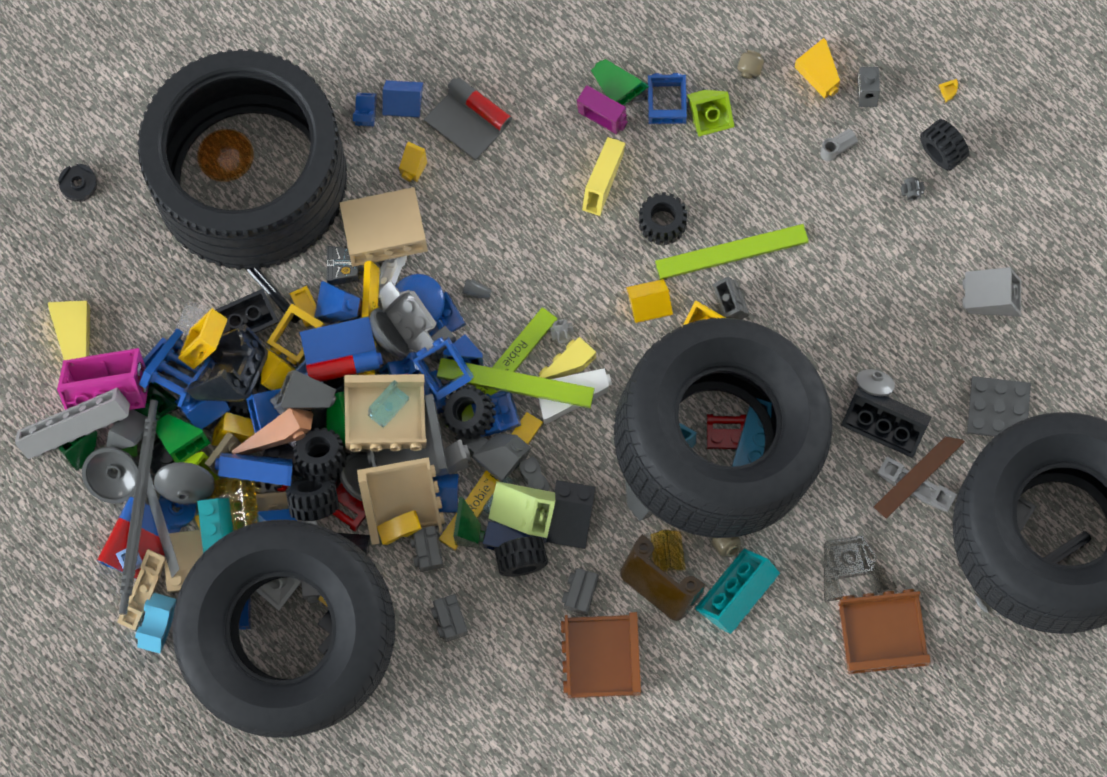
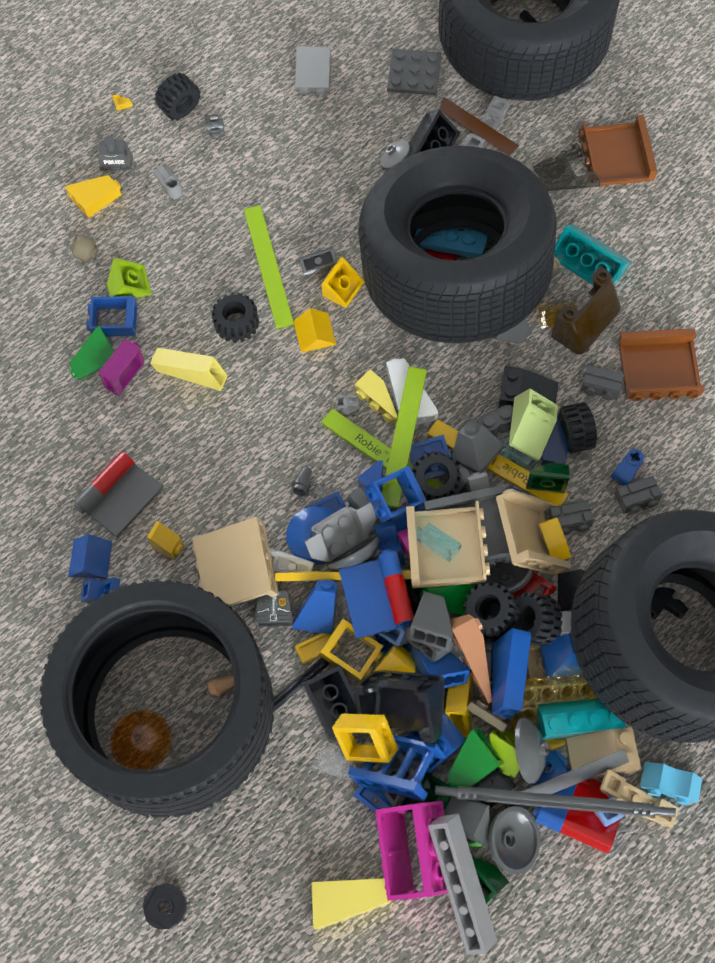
camera: 90 degrees left, 5 degrees down
(479, 608) = (627, 469): none -> blue piece

